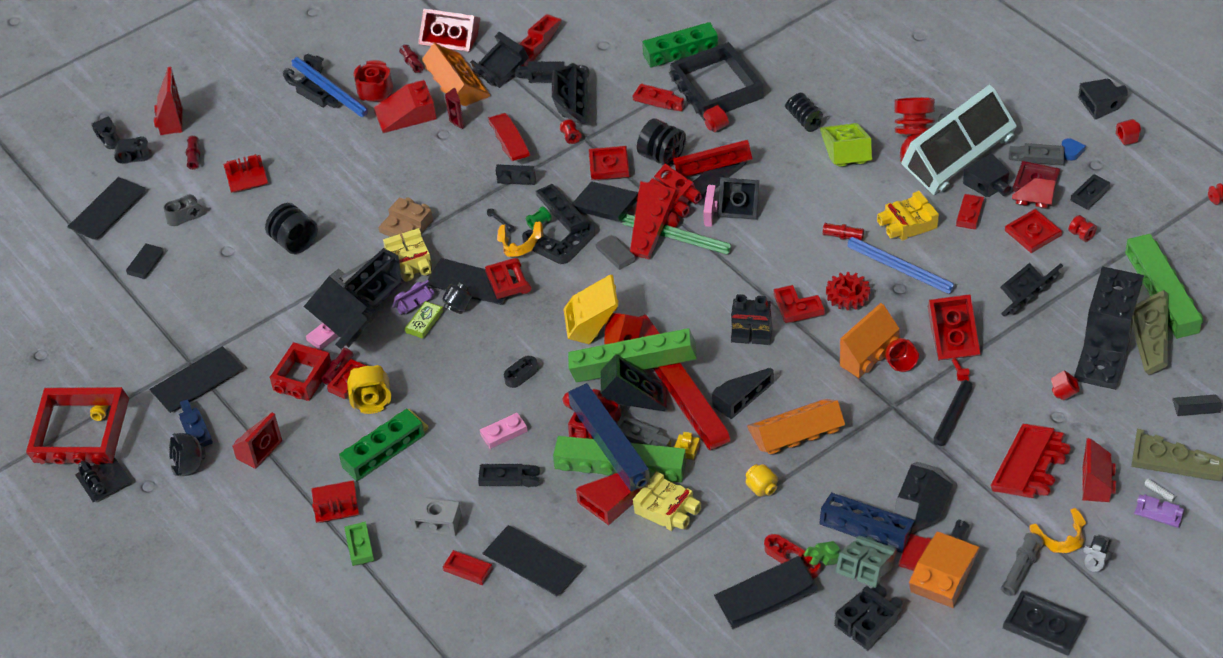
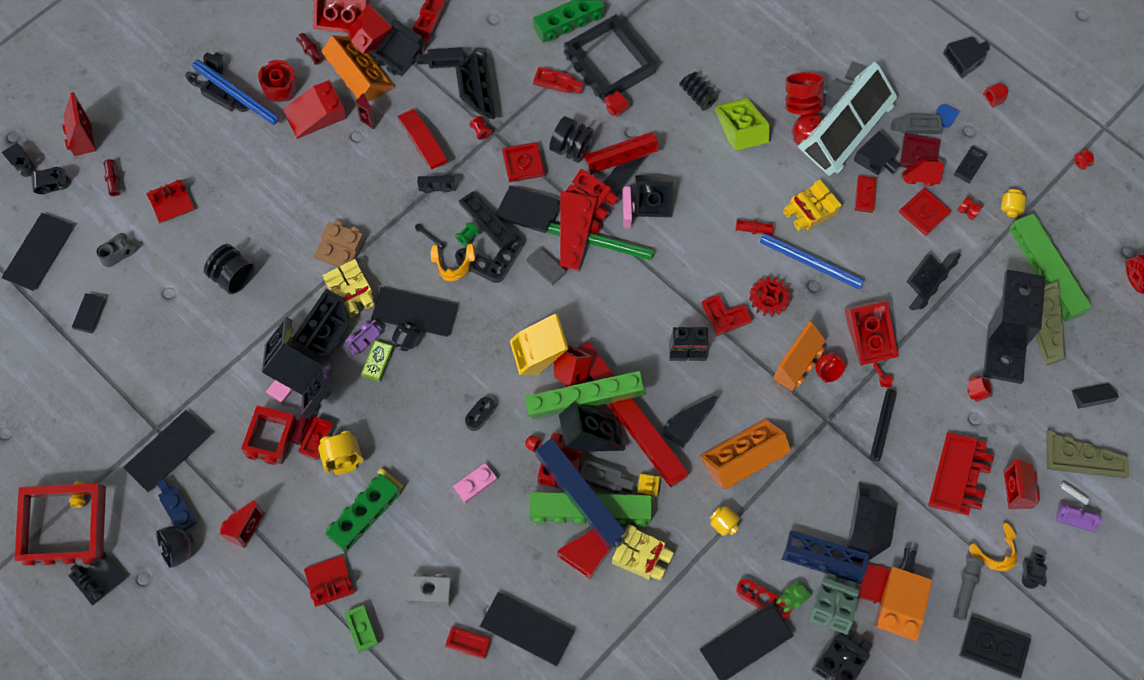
camera: 15 degrees left, 20 degrees up
(473, 43) = (369, 30): none -> red slope
(501, 279) = (444, 311): red plate -> none
(508, 475) = (487, 535): black hinge -> none
(1131, 225) = (1013, 203): none -> yellow head

